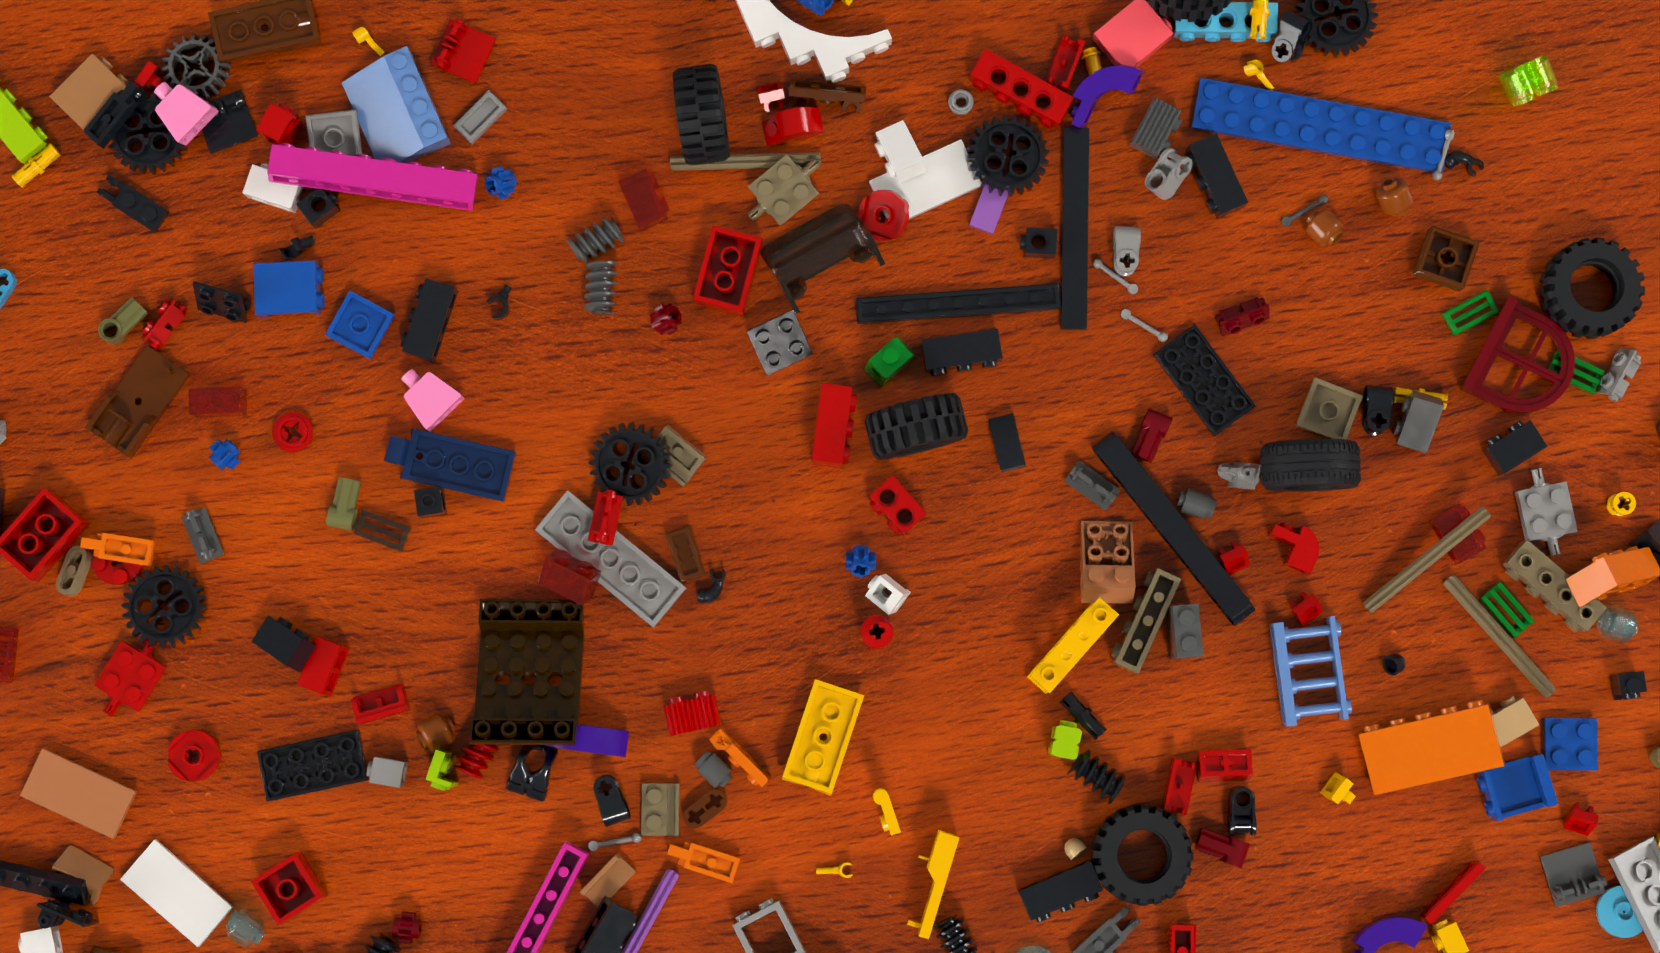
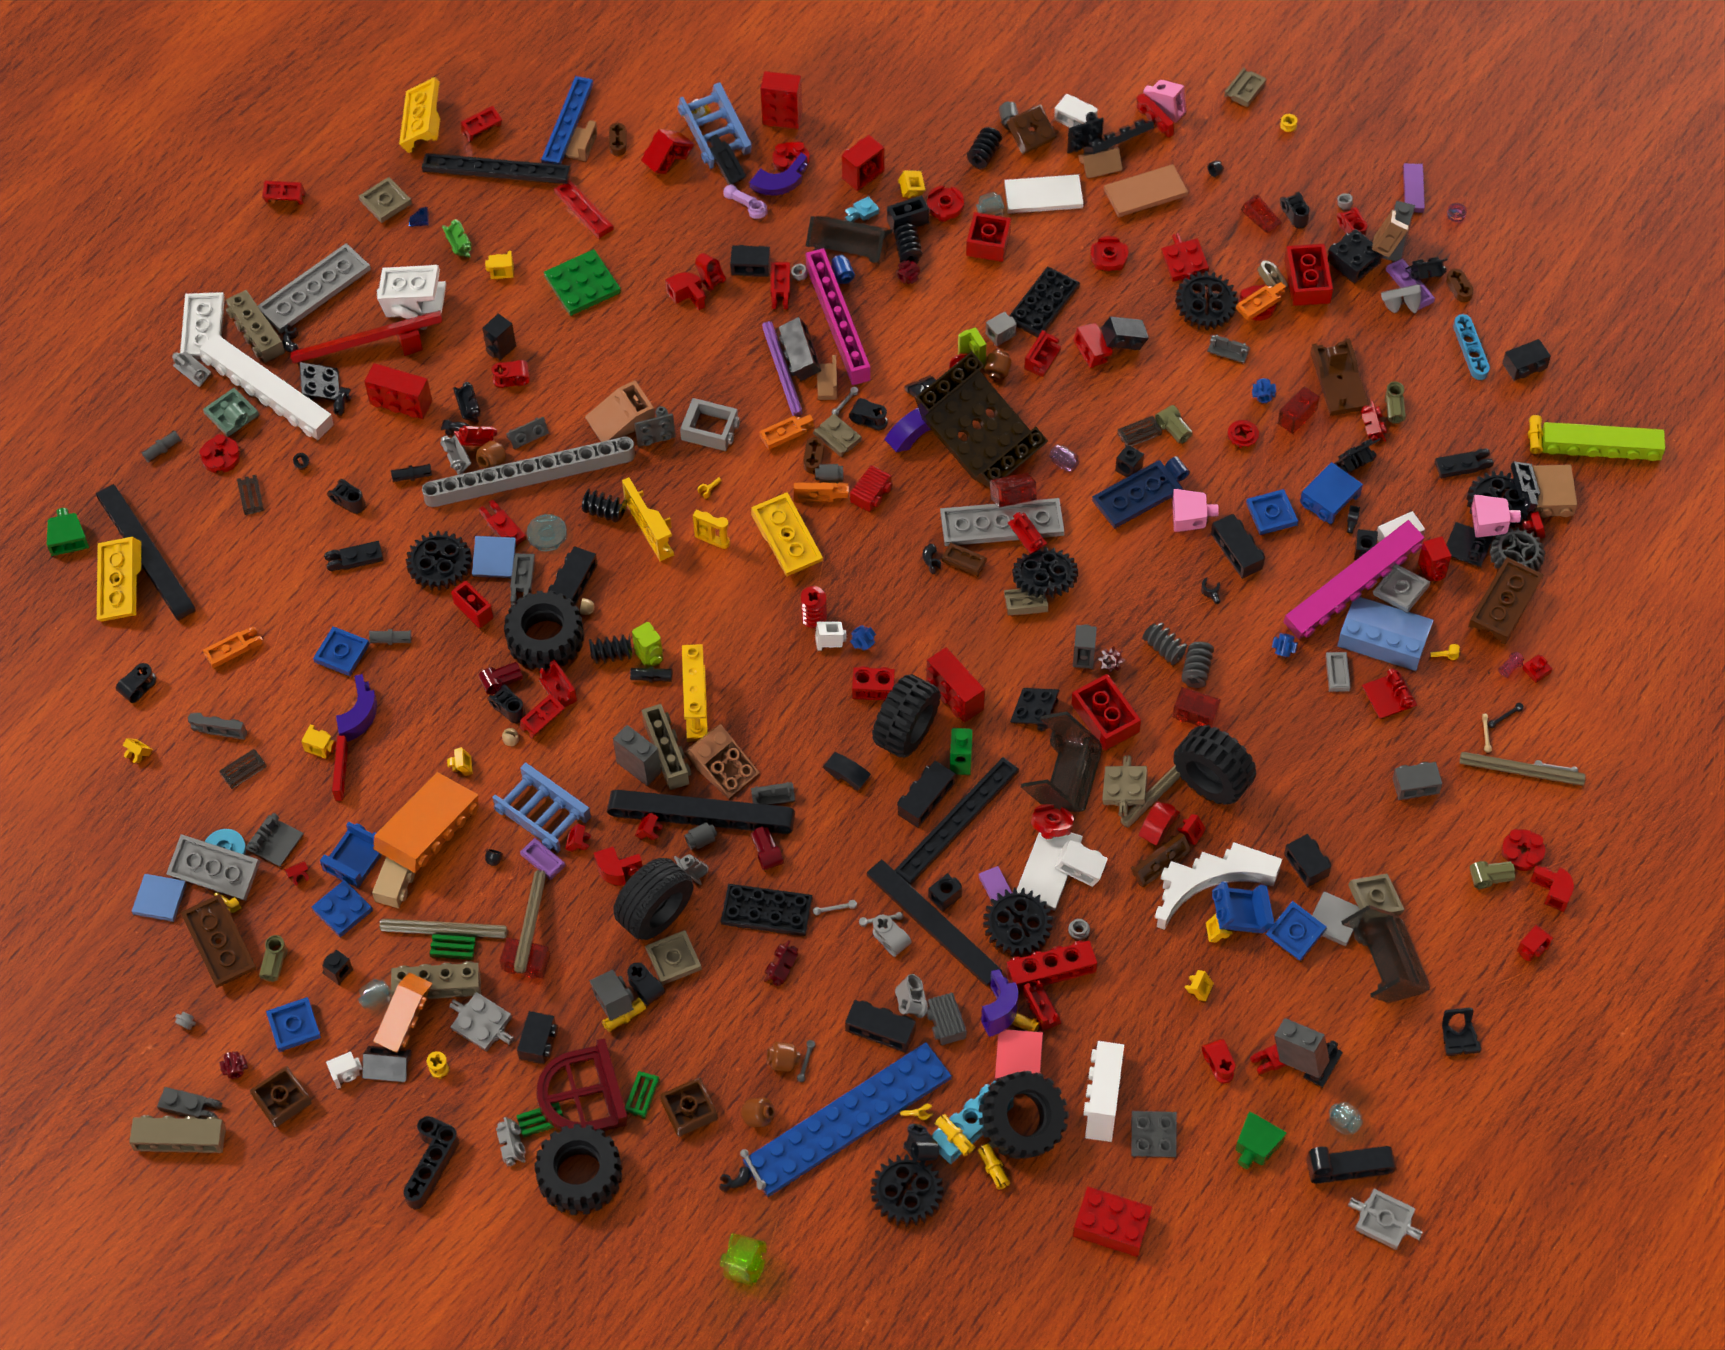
camera: 130 degrees right, 25 degrees down
(482, 568) = (1064, 457): none -> brick
(678, 350) = (1084, 646): none -> dark grey brick
(1263, 780) = (509, 739): none -> tan hinge
(1352, 621) = (542, 858): none -> medium lavender tile

